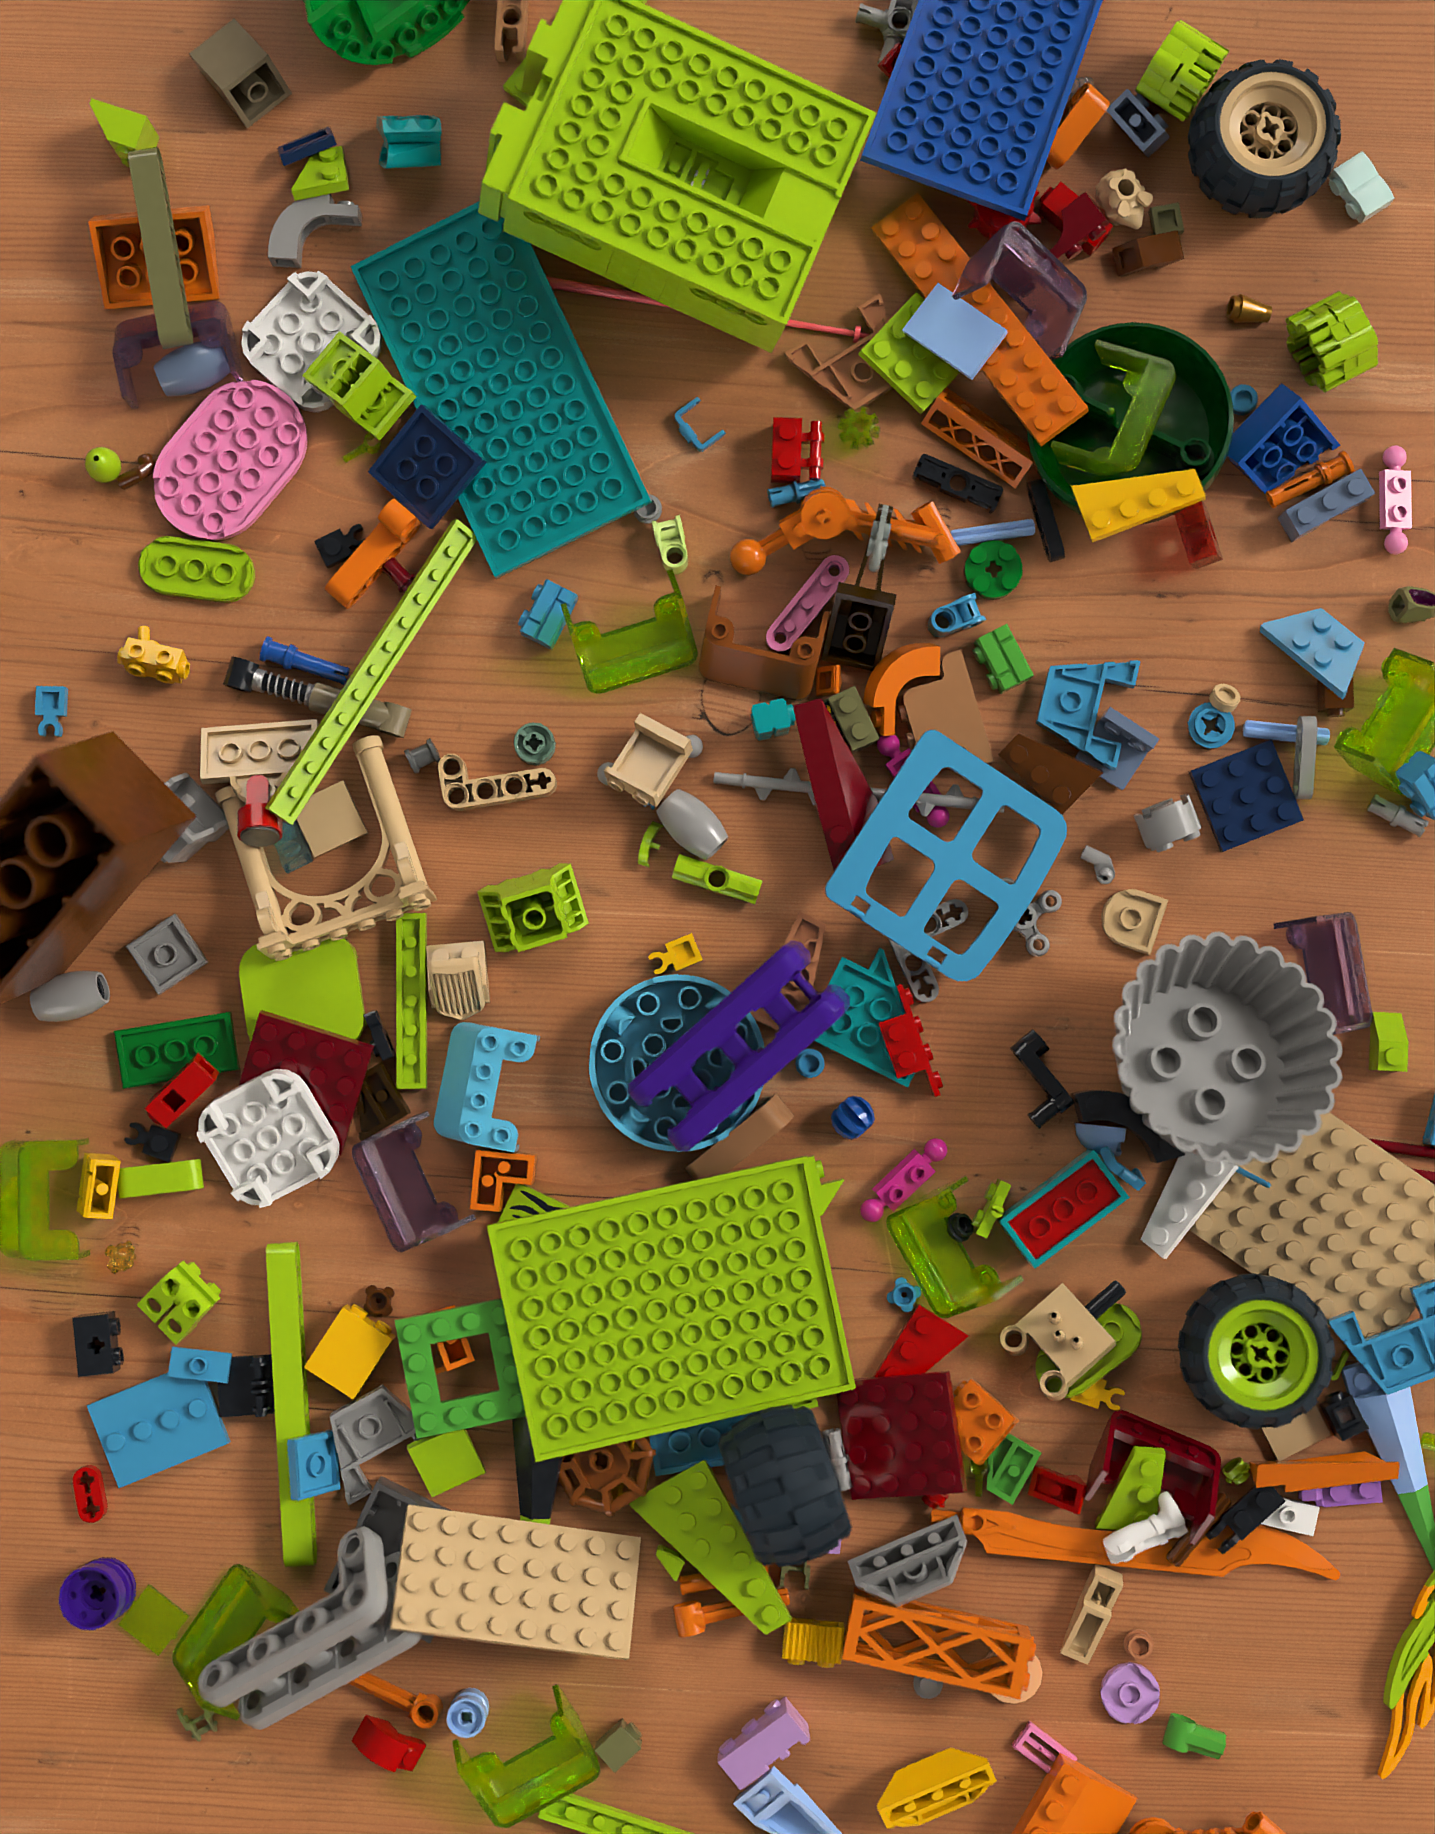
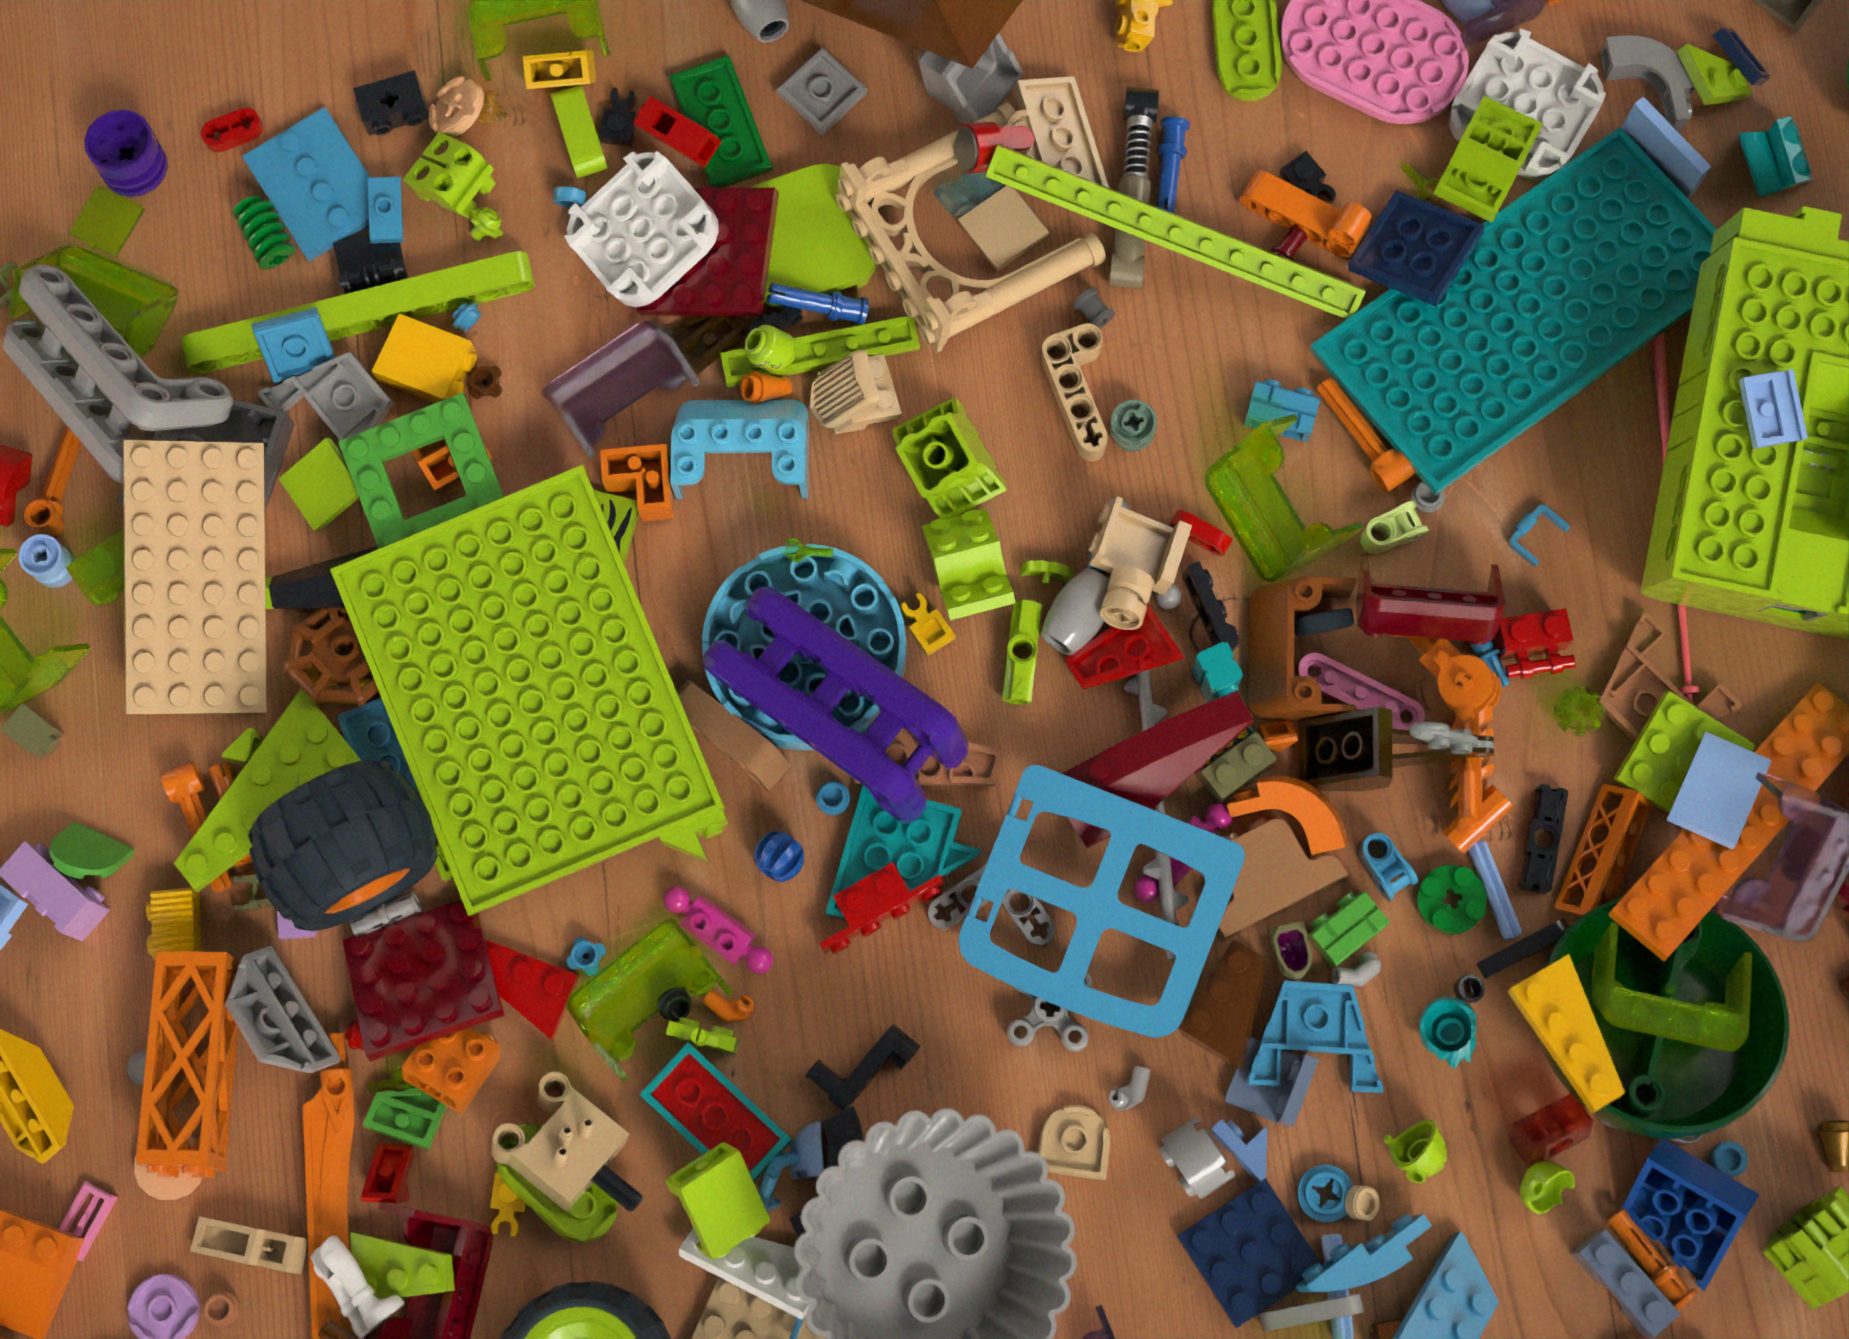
camera: 85 degrees right, 10 degrees down
(114, 1285) = (457, 107): none -> light nougat tile
(198, 1479) = (263, 232): none -> green piece
(221, 1197) = (568, 196): none -> dark azure tile
(230, 1276) = (486, 223): none -> lime plant
(315, 1307) = (466, 316): none -> dark azure plate
(374, 982) = (833, 305): none -> blue pin
(381, 232) = (1666, 147): none -> light blue tile
(406, 1043) = (770, 348): none -> lime head
(437, 1056) = (763, 387): none -> orange cone
(487, 1664) = (101, 570): none -> clear neon green brick
(599, 1043) = (806, 551): none -> clear neon green hand
(617, 535) = (1388, 466): none -> orange axle
(633, 909) = (968, 564): none -> lime bracket
(643, 705) = (1203, 533): none -> red beam
(664, 204) = (1773, 409): none -> light blue plate
(691, 780) = (1126, 598): none -> tan wheel
(711, 713) = (1211, 611): none -> black hinge
(733, 792) = (1124, 653): none -> red wing
(737, 1709) = (87, 852): none -> bright green tile
(744, 620) = (1323, 622): none -> black bush
(759, 531) = (1429, 611): none -> dark red windscreen
(974, 1174) = (729, 1010): none -> orange arm
(1011, 709) = (1291, 949): none -> rock
(1041, 657) = (1368, 968): none -> light grey arm
(1070, 568) = (1474, 988): none -> black hinge
(1101, 596) = (1449, 1029): none -> teal hair
(1135, 1217) = (719, 1200): none -> lime panel
(1169, 779) = (1250, 1155): none -> medium blue slope
(1193, 643) = (1417, 1152): none -> lime helmet
(1238, 551) = (1543, 1185): none -> lime hair
(1278, 712) = (1357, 1266): none -> dark azure slope

